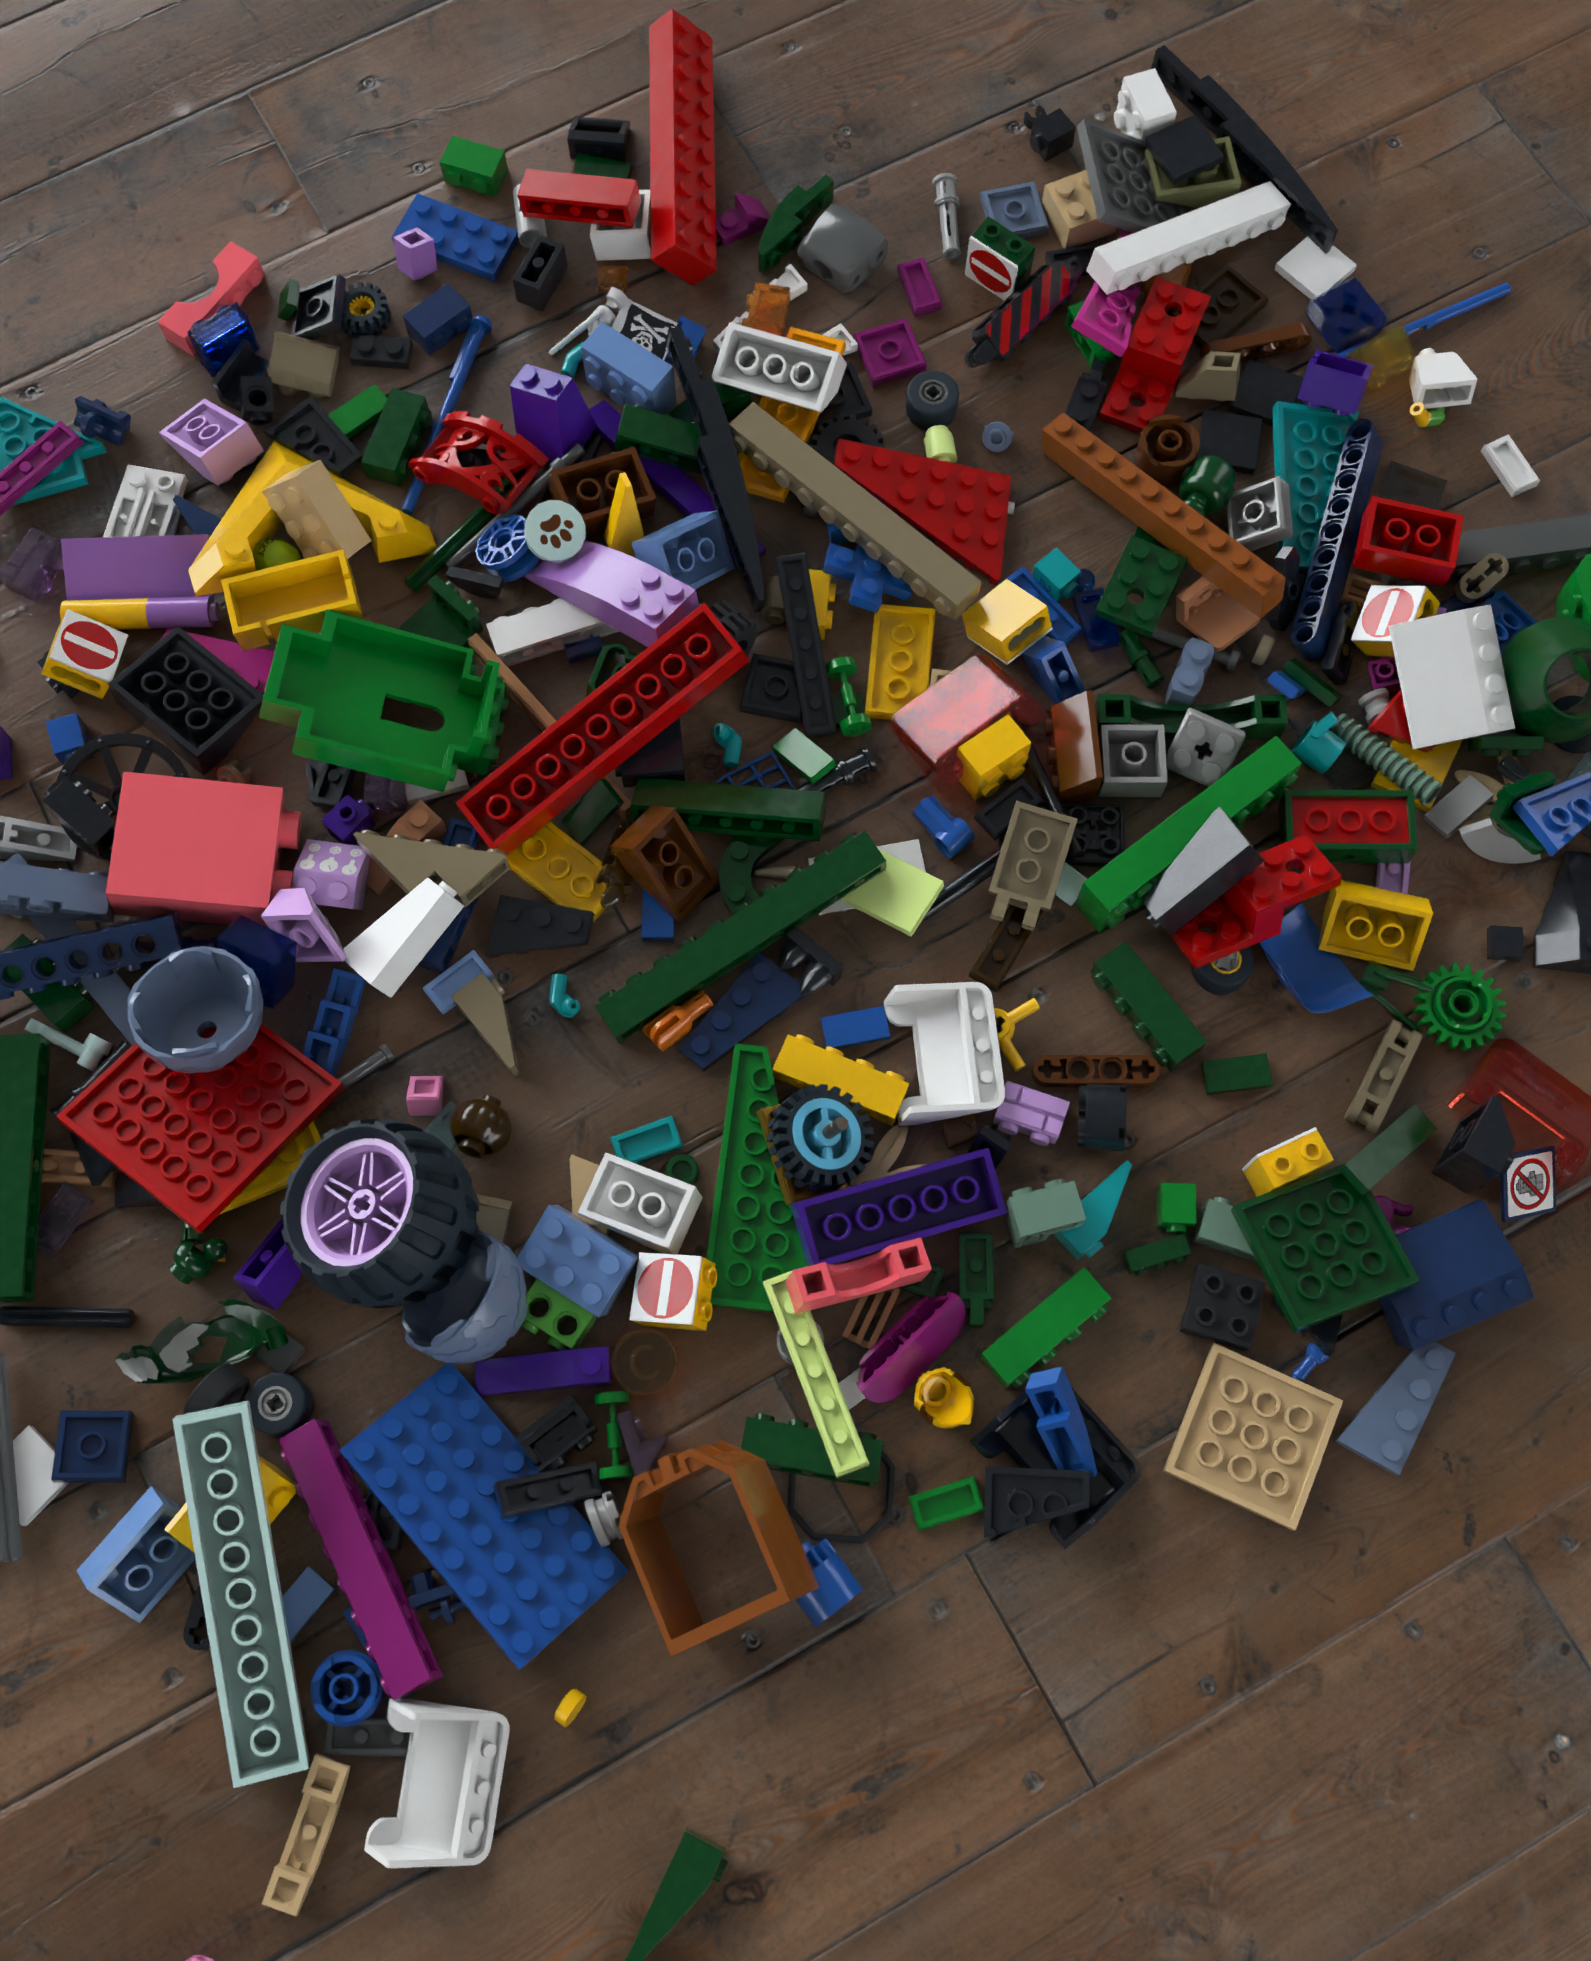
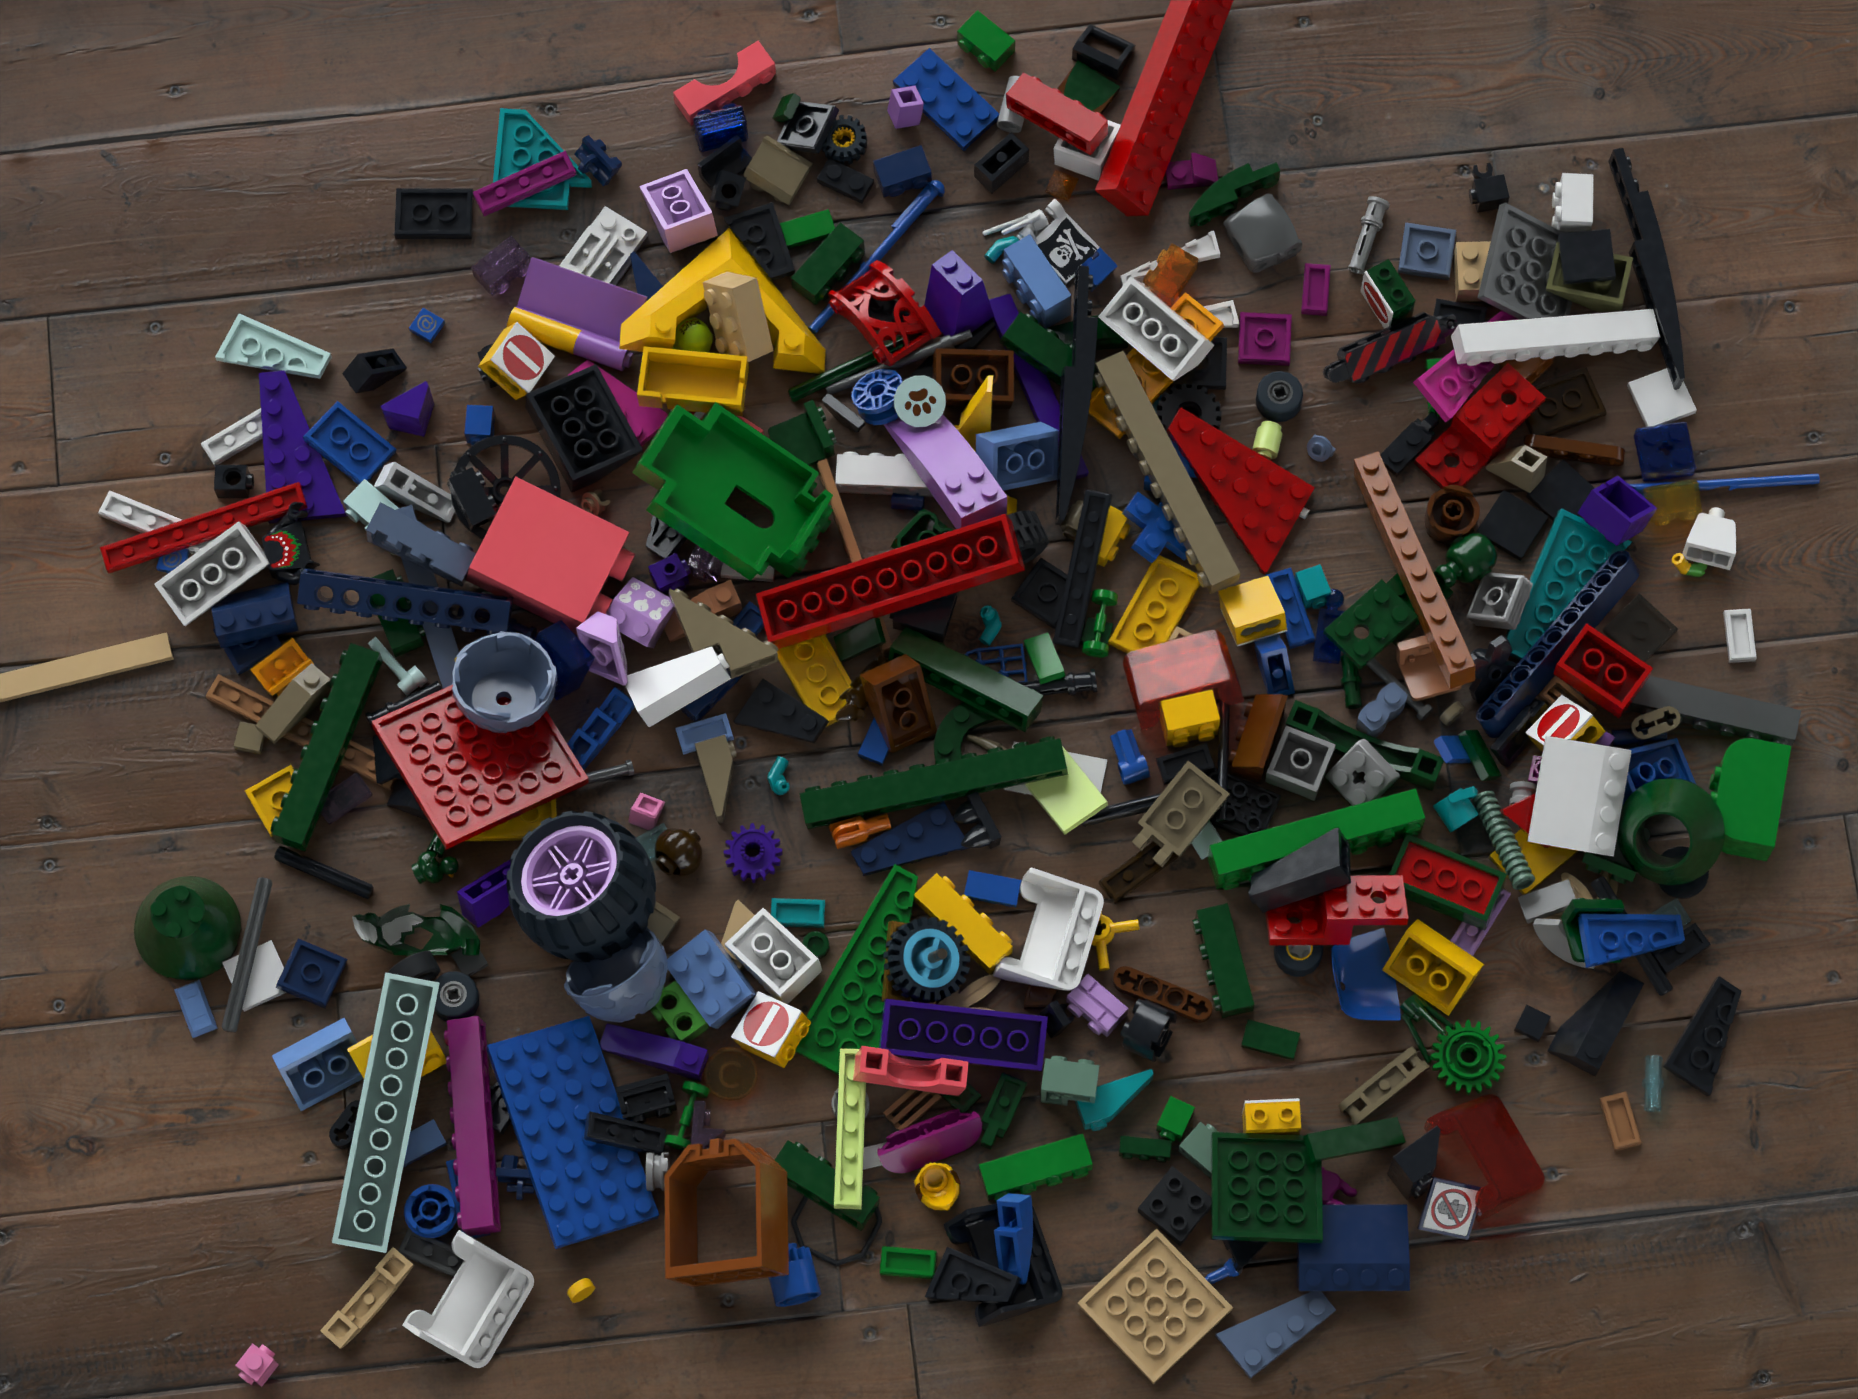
camera: 25 degrees right, 0 degrees up
(573, 1110) = (753, 839): none -> dark purple gear

